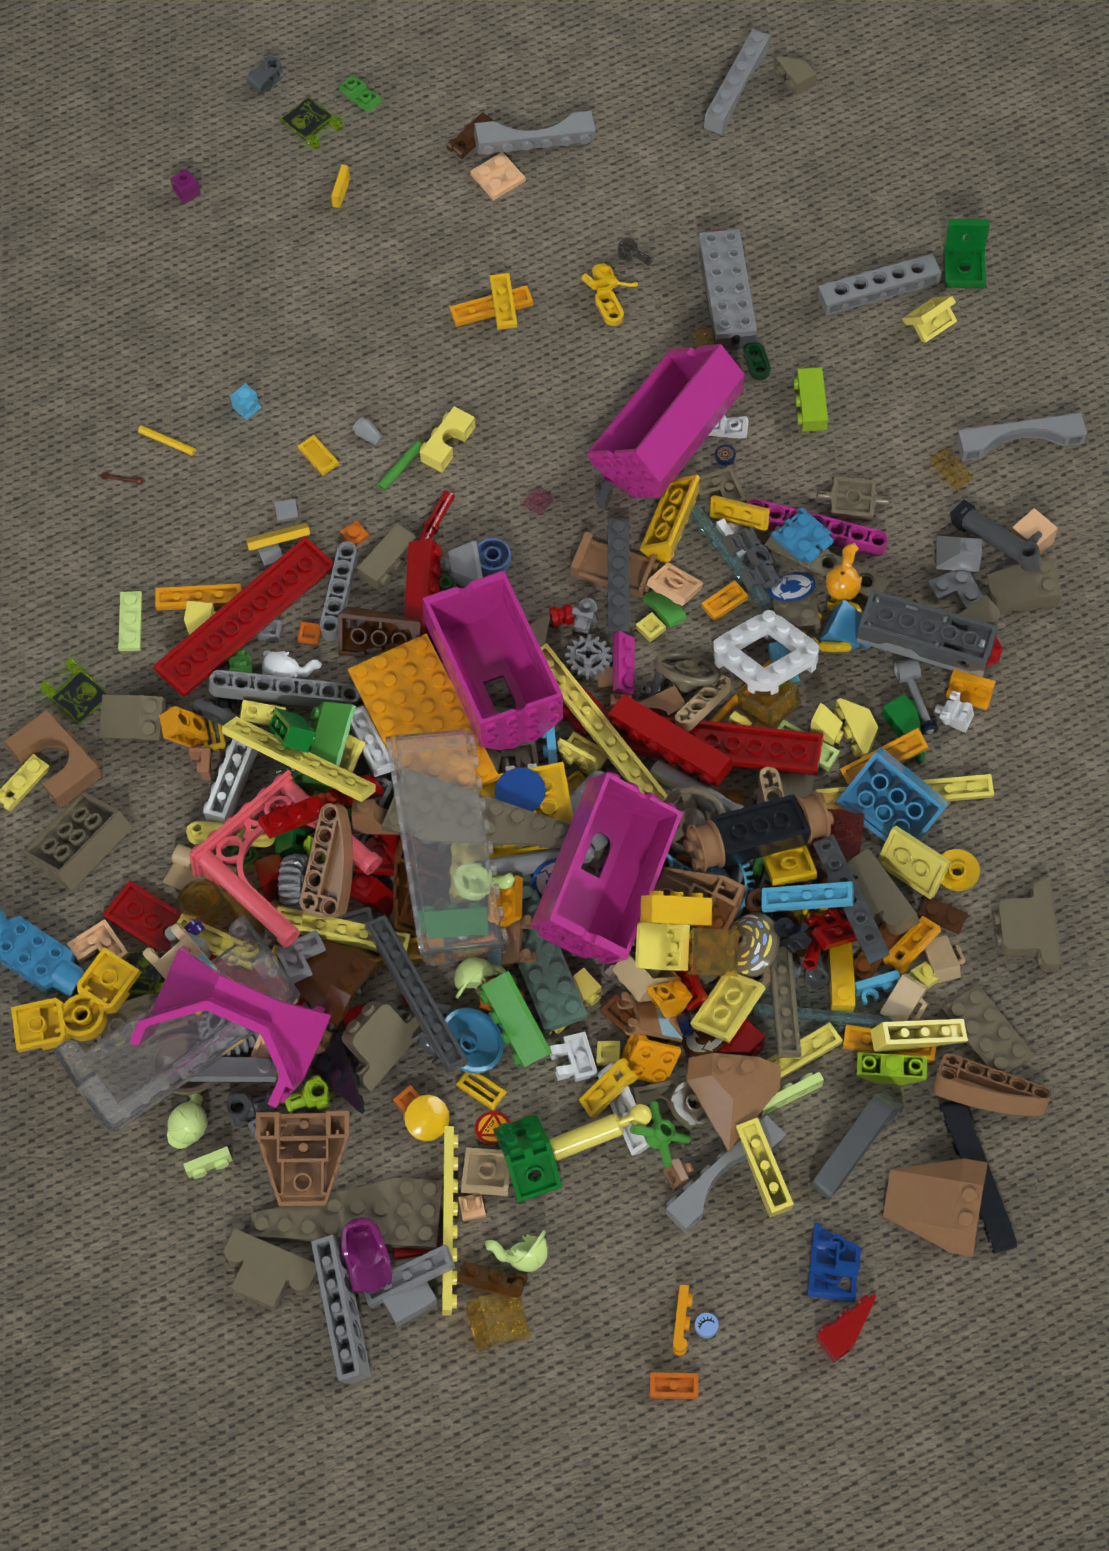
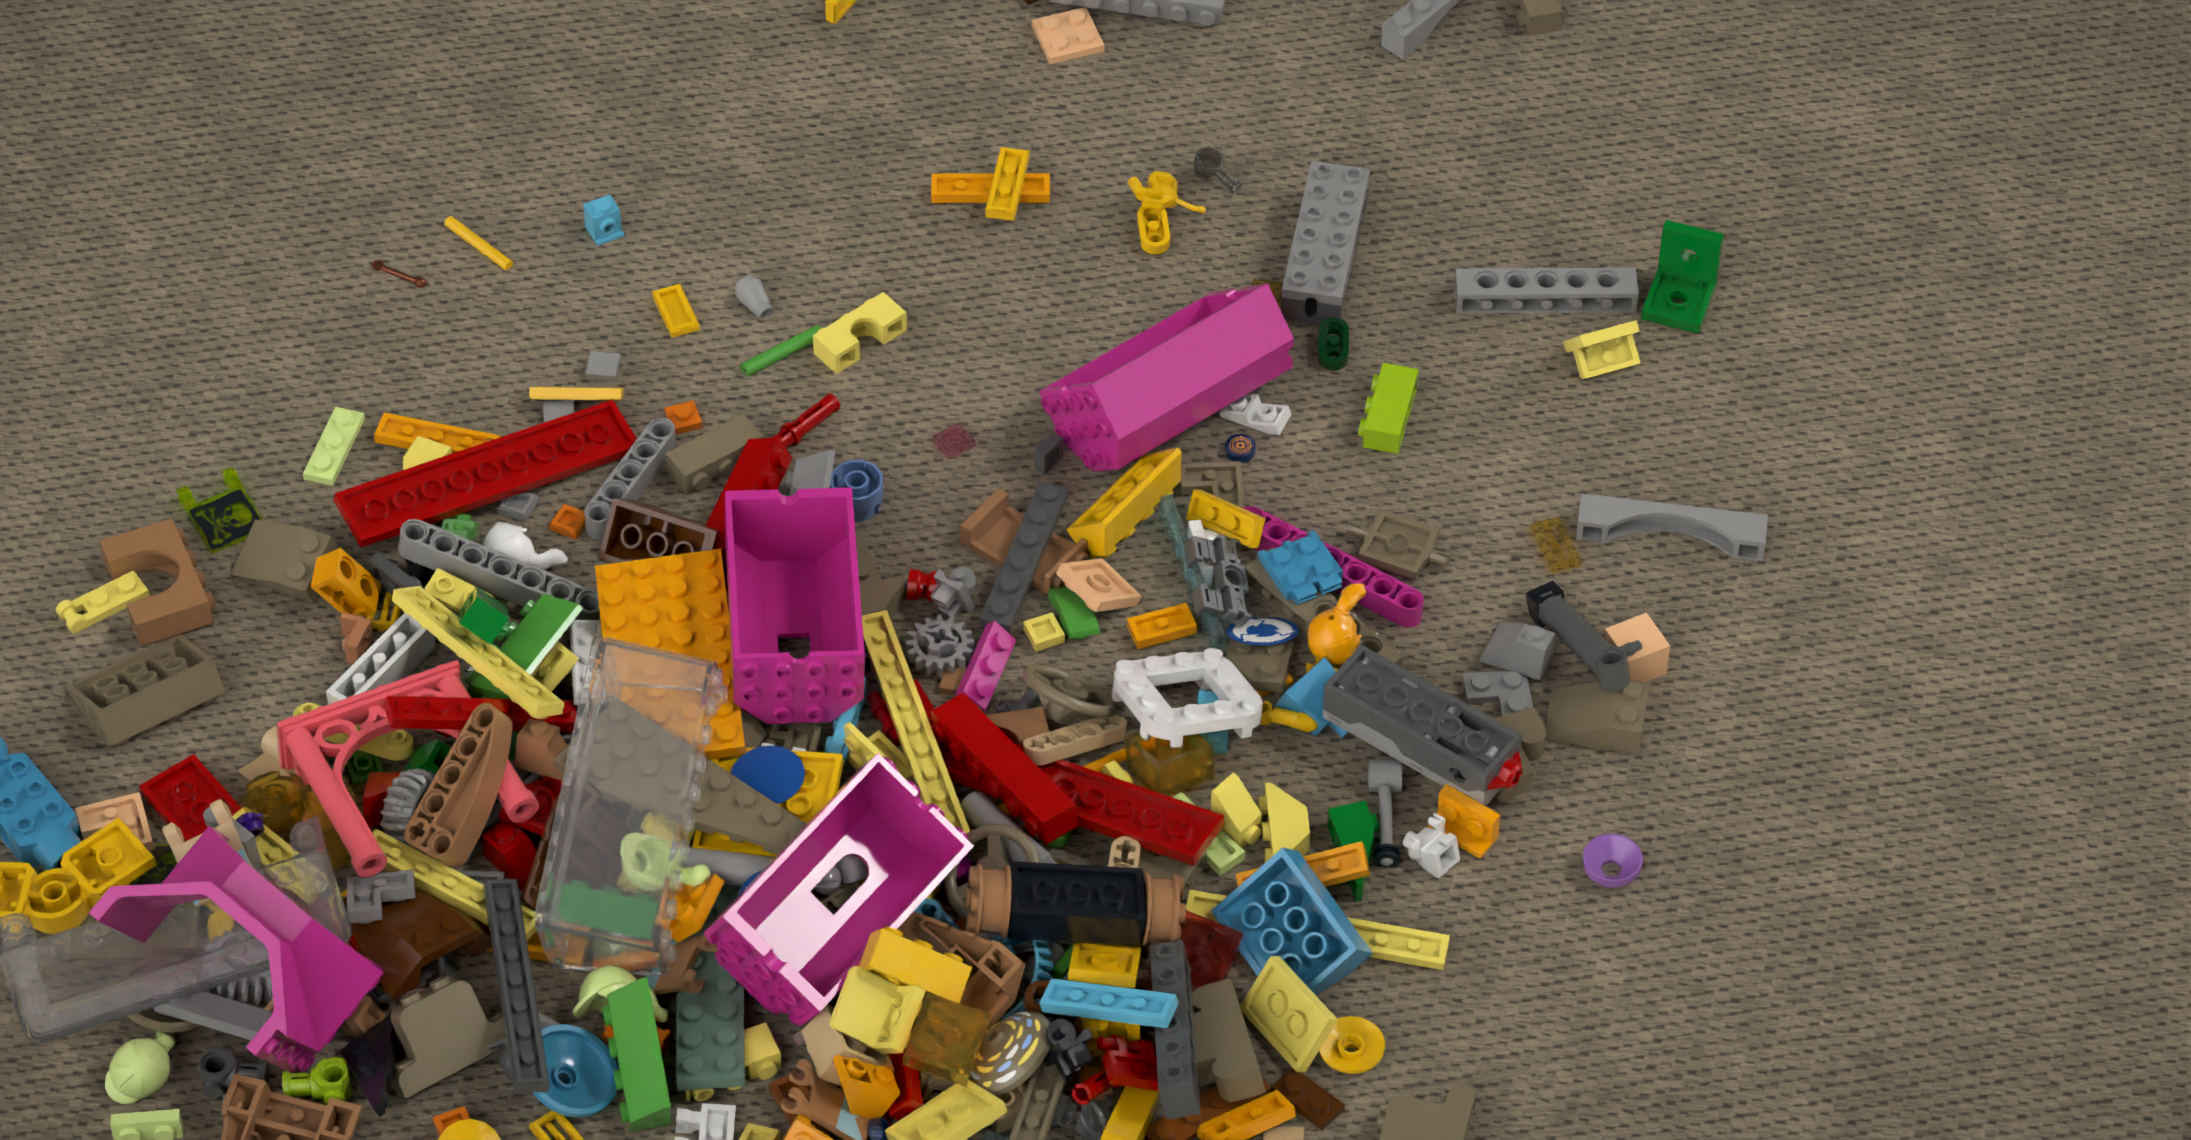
camera: 15 degrees right, 15 degrees down
(1075, 681) = (1616, 850): none -> medium lavender piece

